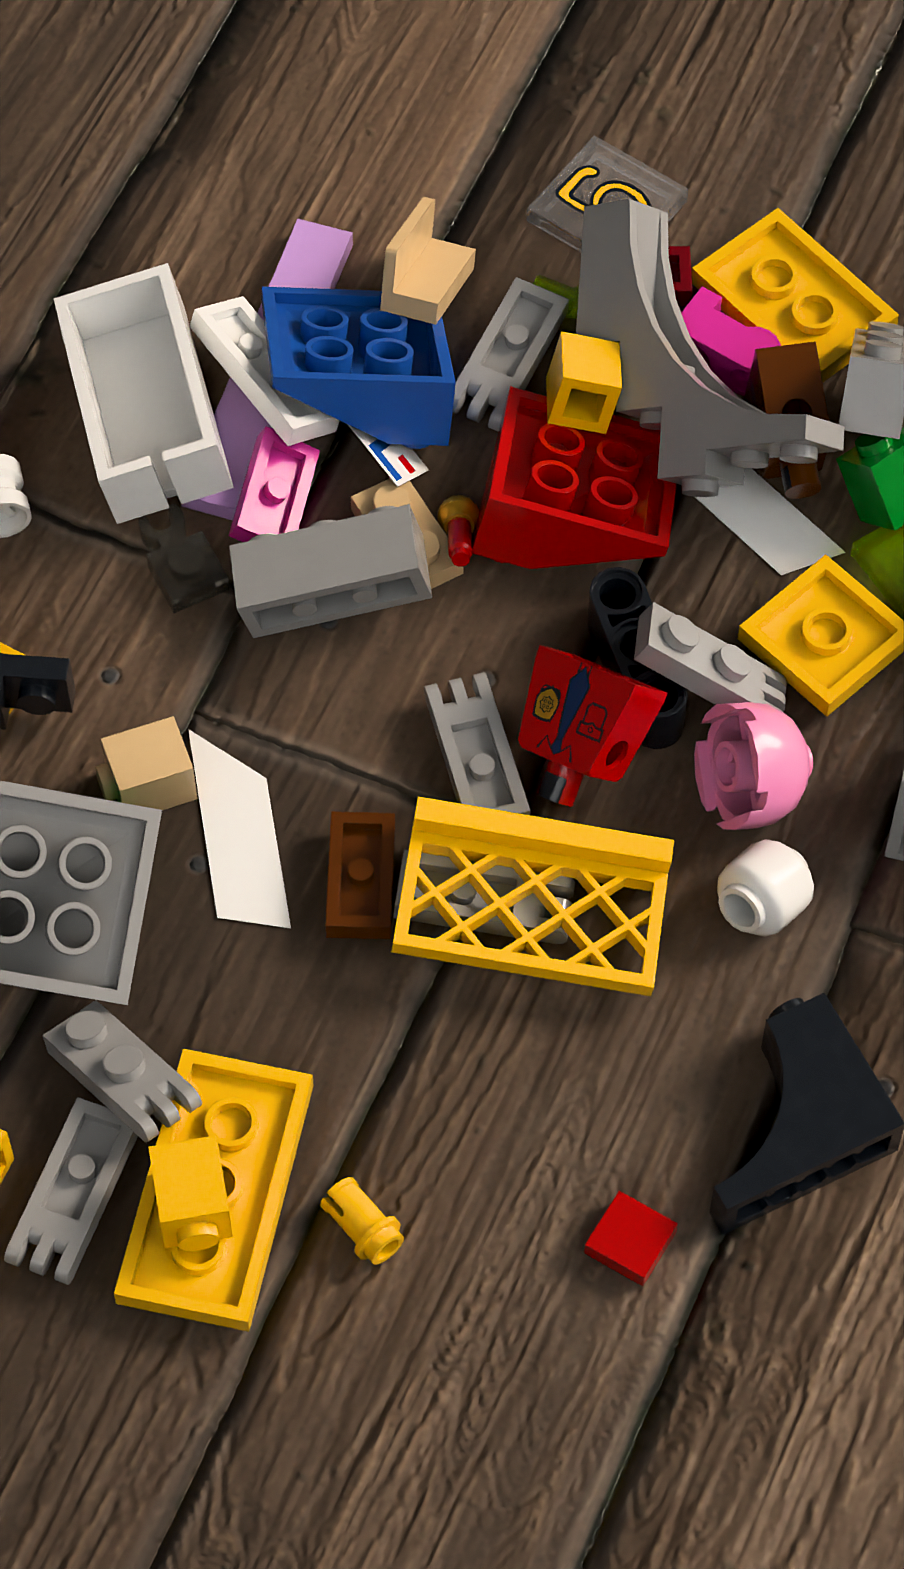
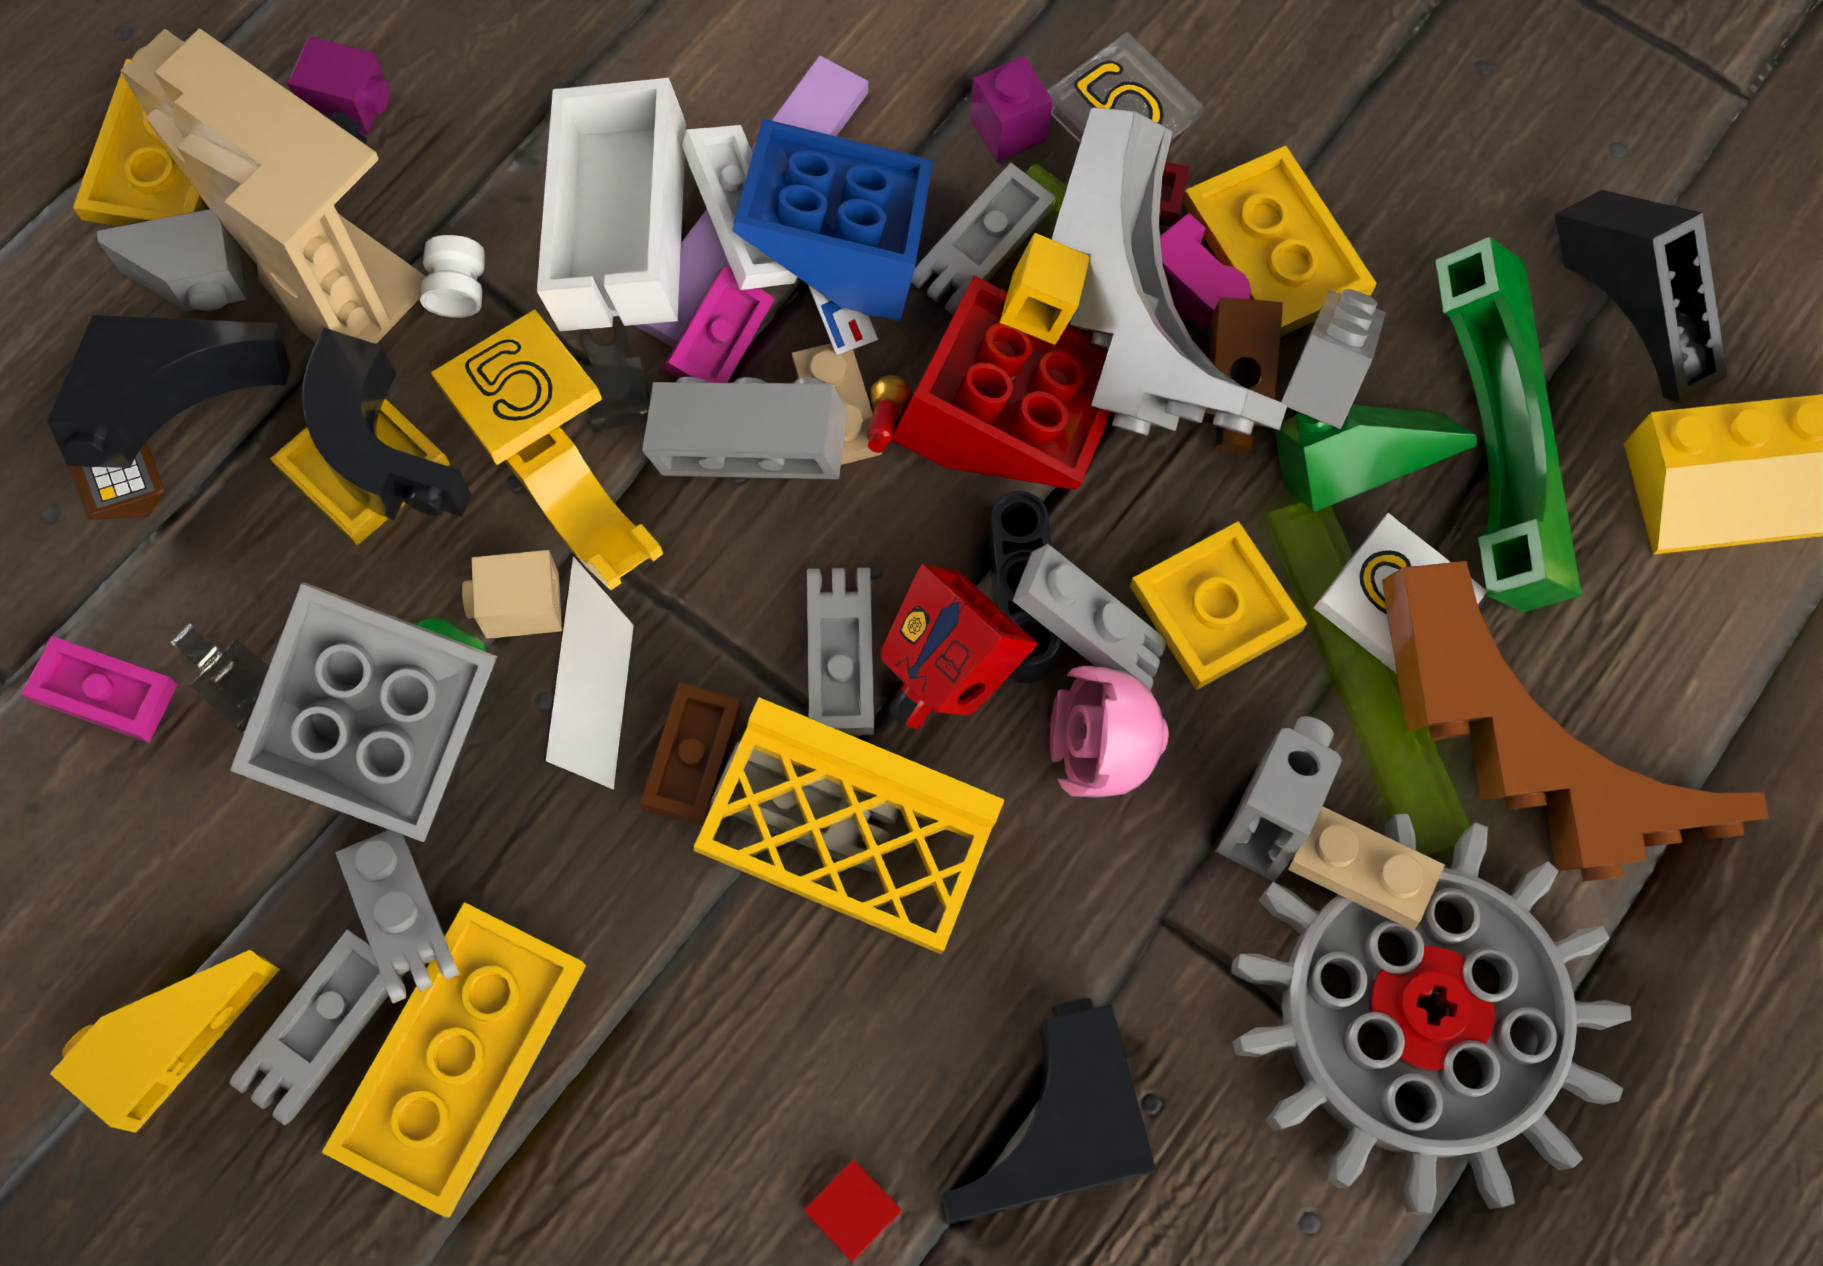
camera: 10 degrees right, 10 degrees up
(93, 580) = (516, 386): none -> yellow tile
(154, 657) = (581, 508): none -> yellow piece
(190, 1193) = (417, 1074): yellow brick -> none
(371, 1231) = (591, 1128): yellow pin -> none
(422, 271) = (922, 134): tan panel -> none
(502, 228) = (1010, 108): none -> magenta brick
(764, 888) = (1084, 866): white head -> none
(770, 524) = (1196, 474): white sticker -> none

